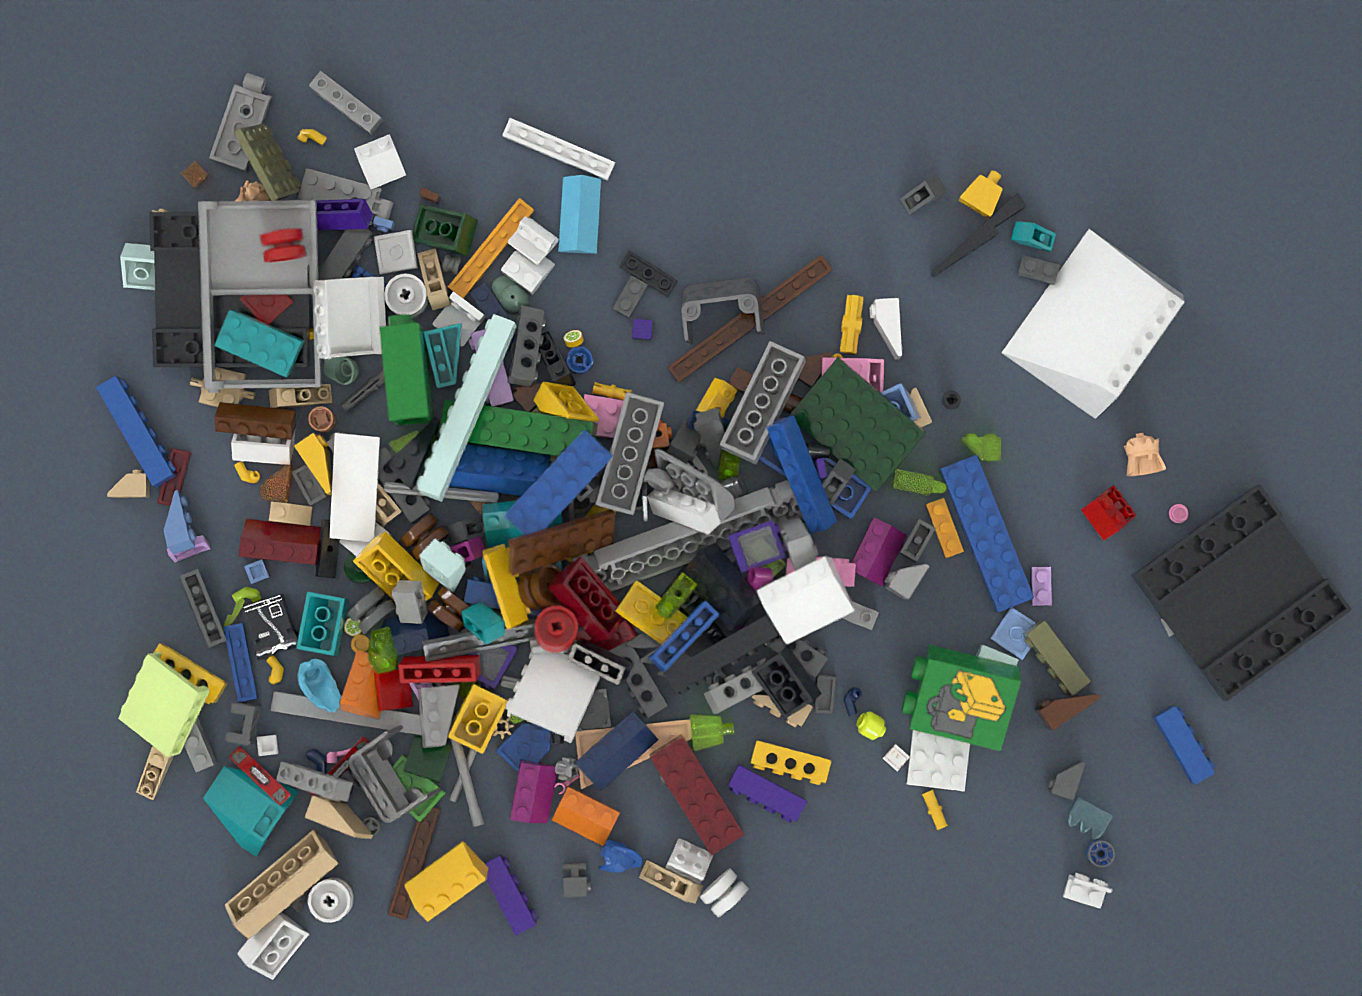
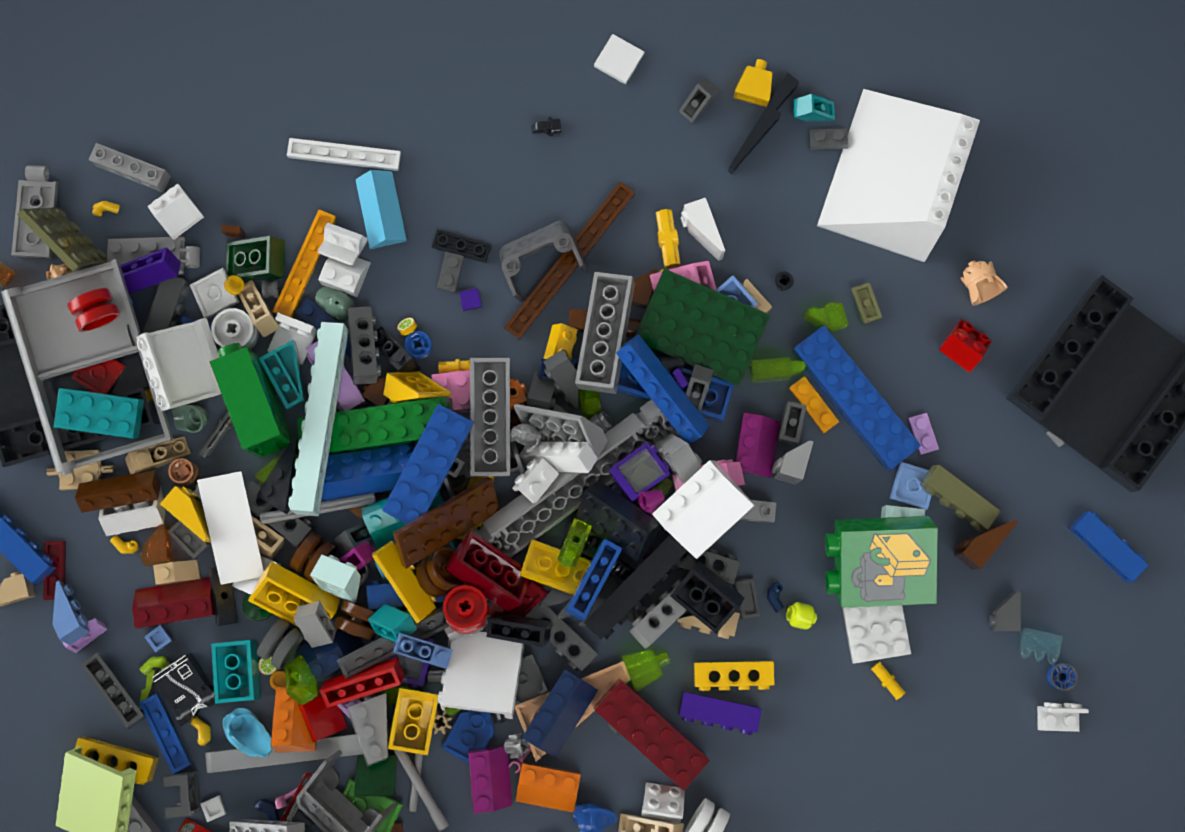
camera: 15 degrees left, 5 degrees down
(383, 224) = (195, 270): medium blue plate -> none
(417, 250) = (234, 285): none -> yellow tile
(505, 656) = (423, 650): none -> medium blue slope
(656, 525) = (535, 479): none -> white bracket
(770, 178) = (551, 127): none -> black piece
(856, 129) = (619, 59): none -> white tile
(896, 757) = (834, 640): white tile -> none
(1025, 444) = (866, 303): none -> olive plate
(1178, 513) = (1031, 327): bright pink plate -> none

